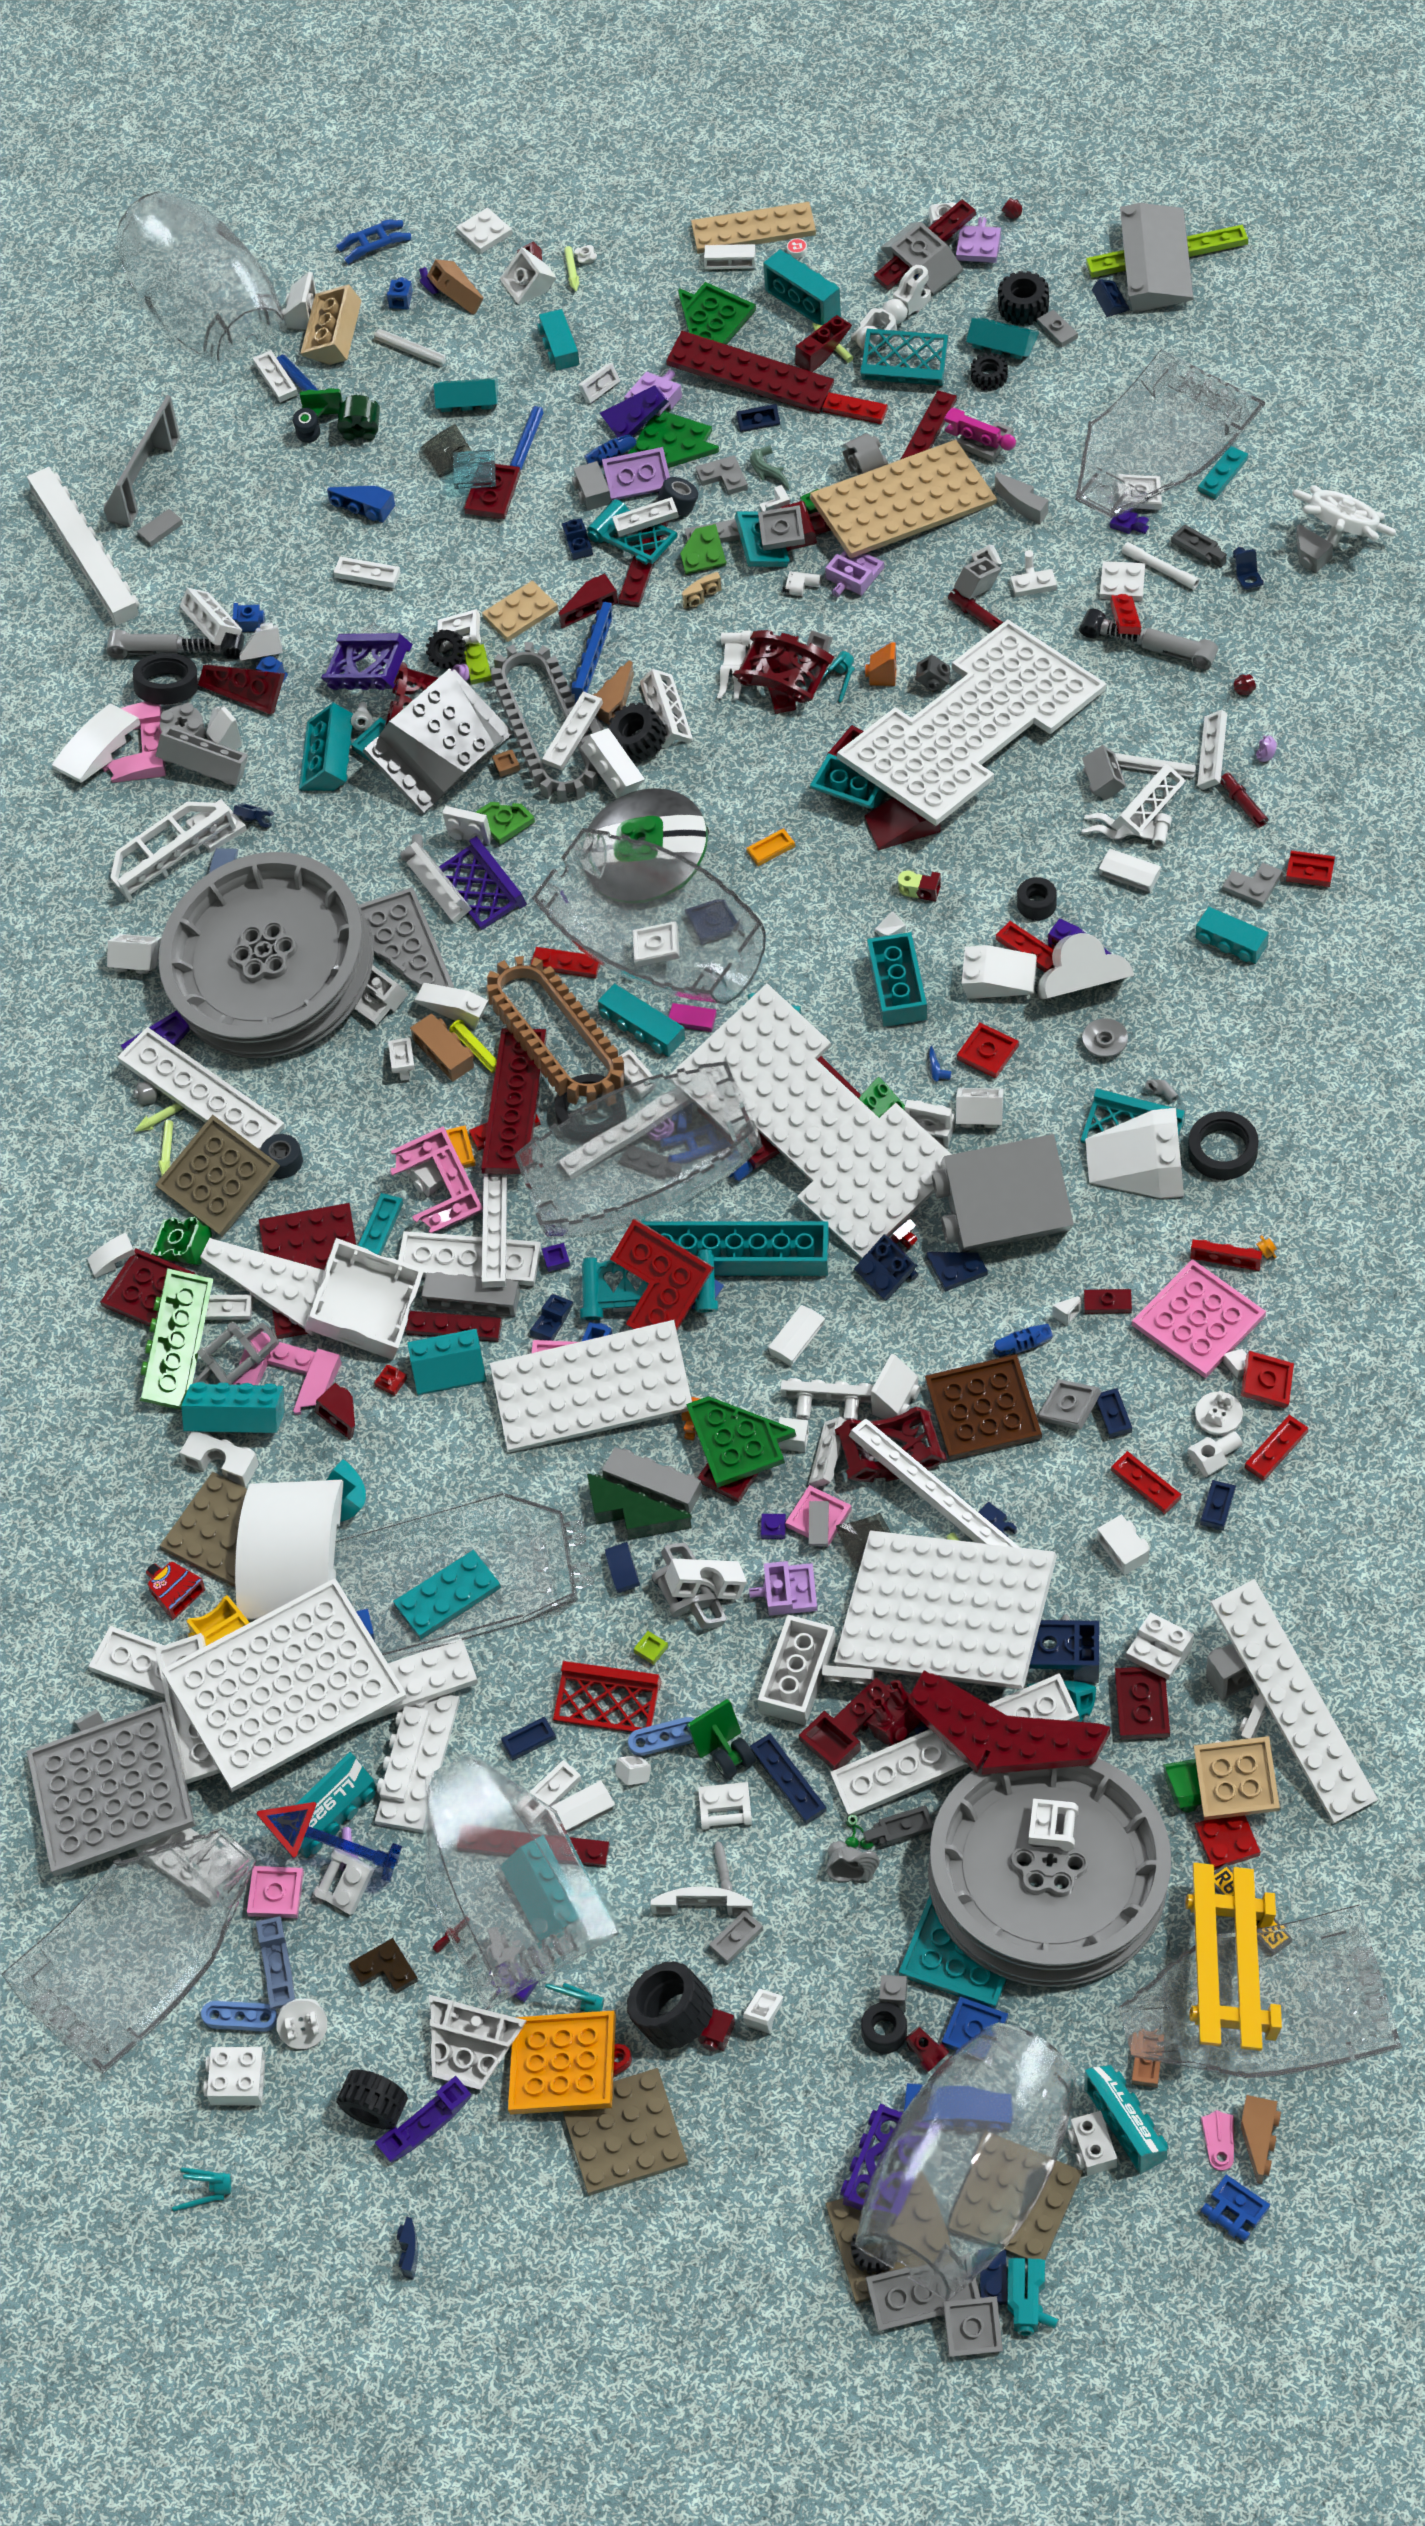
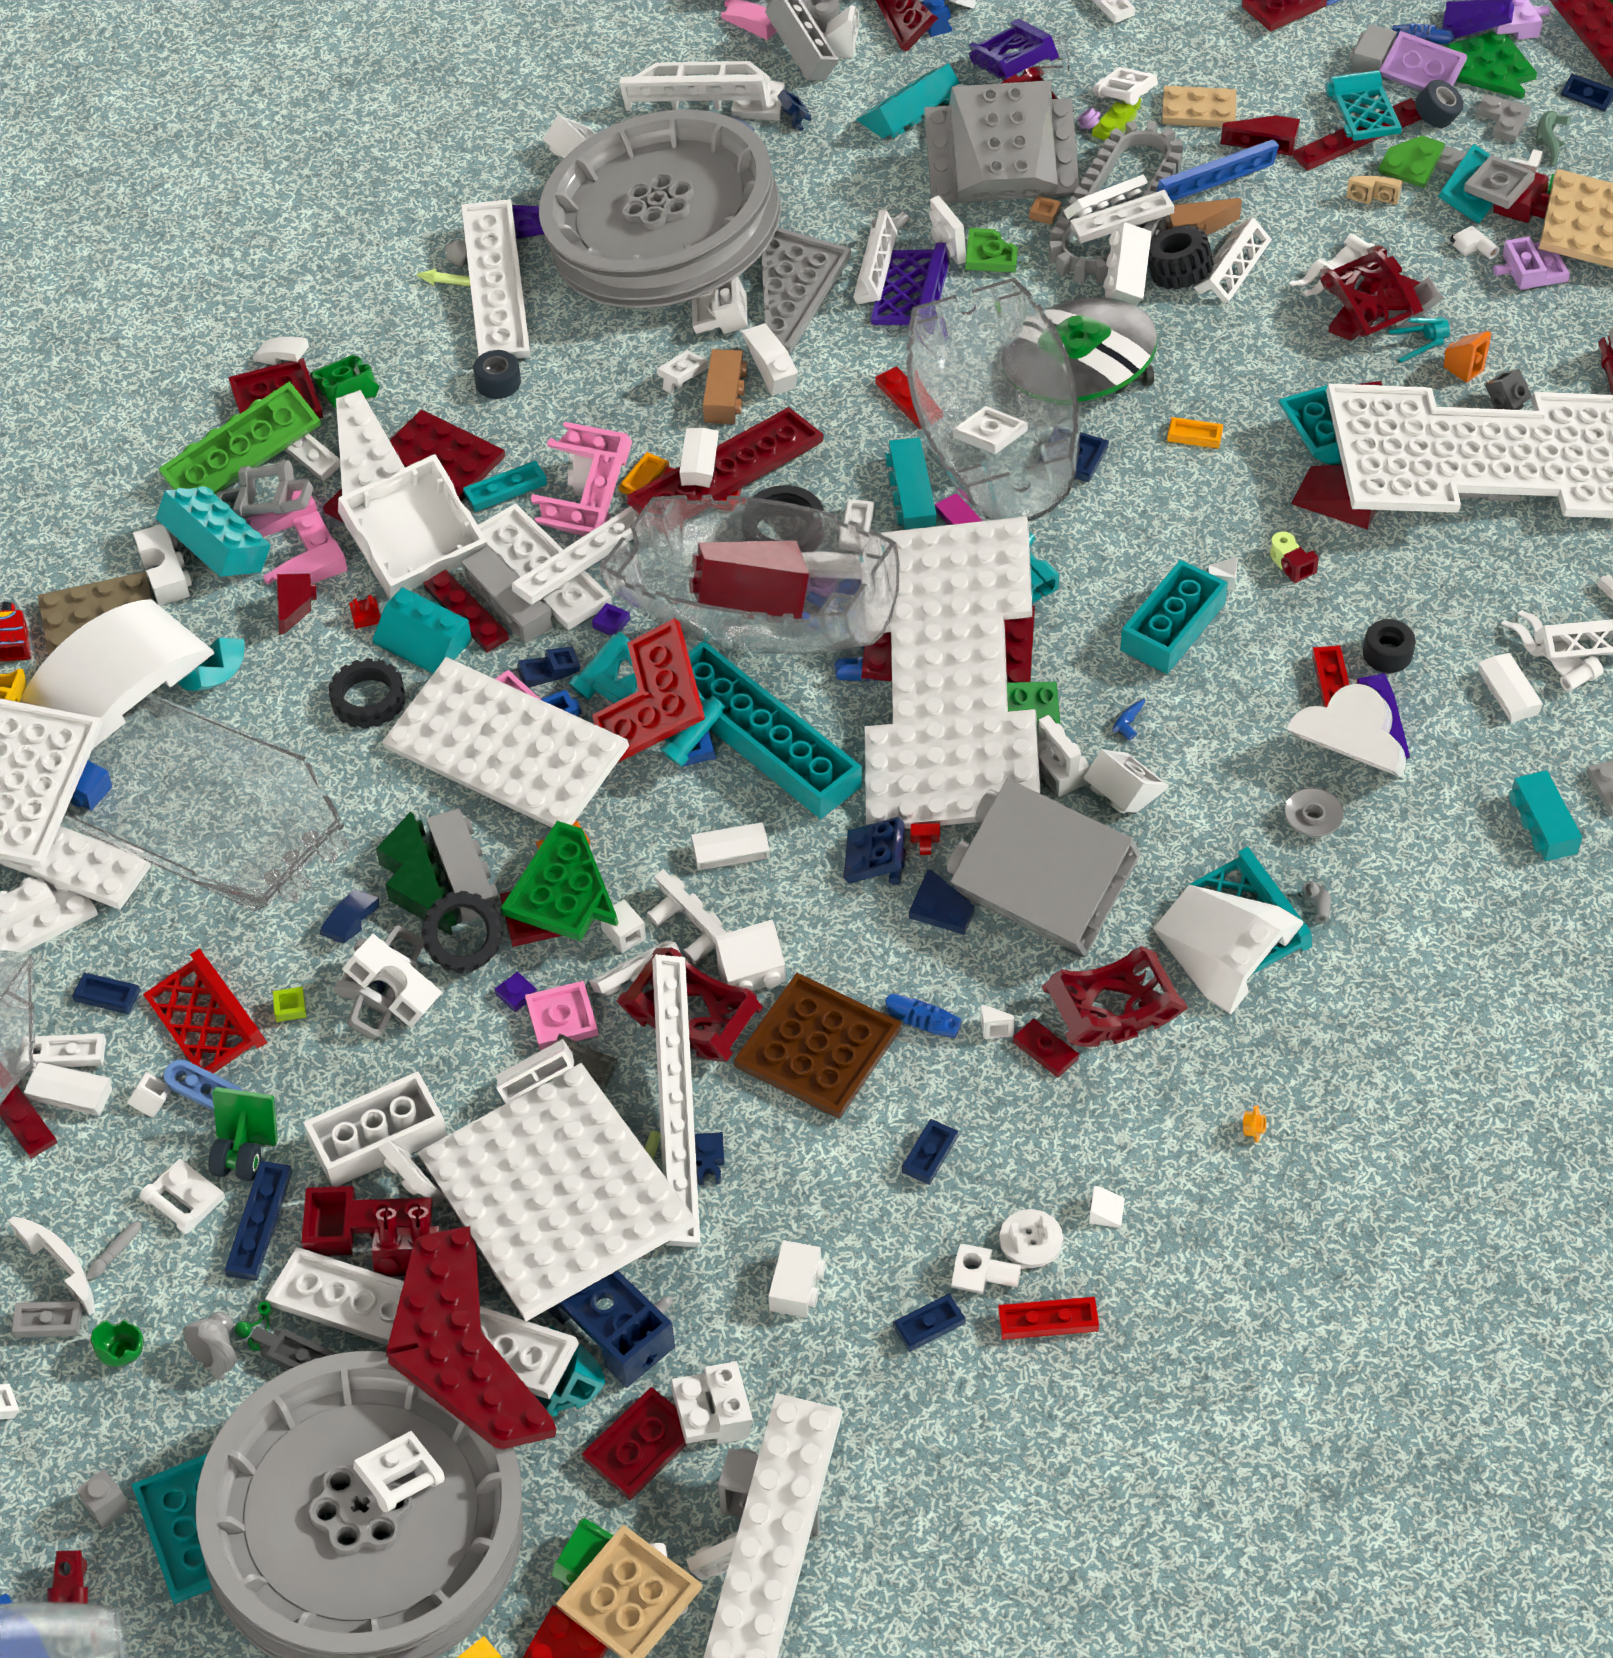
camera: 40 degrees right, 5 degrees down
(165, 1161) = (405, 317): yellowish green piece -> none
(217, 1175) = (427, 349): dark tan plate -> none
(437, 640) = (1089, 82): black tyre -> none
(447, 1594) = (190, 817): teal plate -> none
(460, 1449) = (367, 715): none -> black tyre
(474, 1044) = (755, 384): neon yellow axle -> none
(497, 1105) = (698, 456): none -> white piece
(542, 726) = (1102, 199): none -> white plate
(574, 1013) = (811, 377): medium nougat piece -> none
(577, 538) = (1314, 83): dark blue slope -> none
(640, 1155) = (751, 576): none -> dark red slope
(645, 516) = (1386, 97): white plate -> none
(722, 1501) = (480, 906): none -> black tyre
(787, 1588) = (459, 1054): lavender plate -> none
(796, 1911) = (117, 1343): none -> green hair
(818, 1523) = (547, 1019): light grey piece -> none
(849, 1558) = (534, 1071): none -> white piece
(884, 2012) = (53, 1505): black tyre -> none
(969, 2020) = (140, 1598): blue plate -> none
(987, 1050) = (1190, 740): red plate -> none
(997, 972) = (1273, 678): white slope -> none
(1069, 1404) = (897, 1108): light grey plate -> none
(1100, 1258) = (1077, 990): none -> dark red fence
(1103, 772) = (1578, 583): light grey brick -> none
(1146, 1482) = (886, 1242): red plate -> none
(1198, 1318) = (1112, 1134): bright pink plate -> none
(1226, 1254) = (1206, 1097): red plate -> none
(1229, 1122) = (1326, 966): black tyre -> none
(1267, 1379) = (1111, 1245): red plate -> none

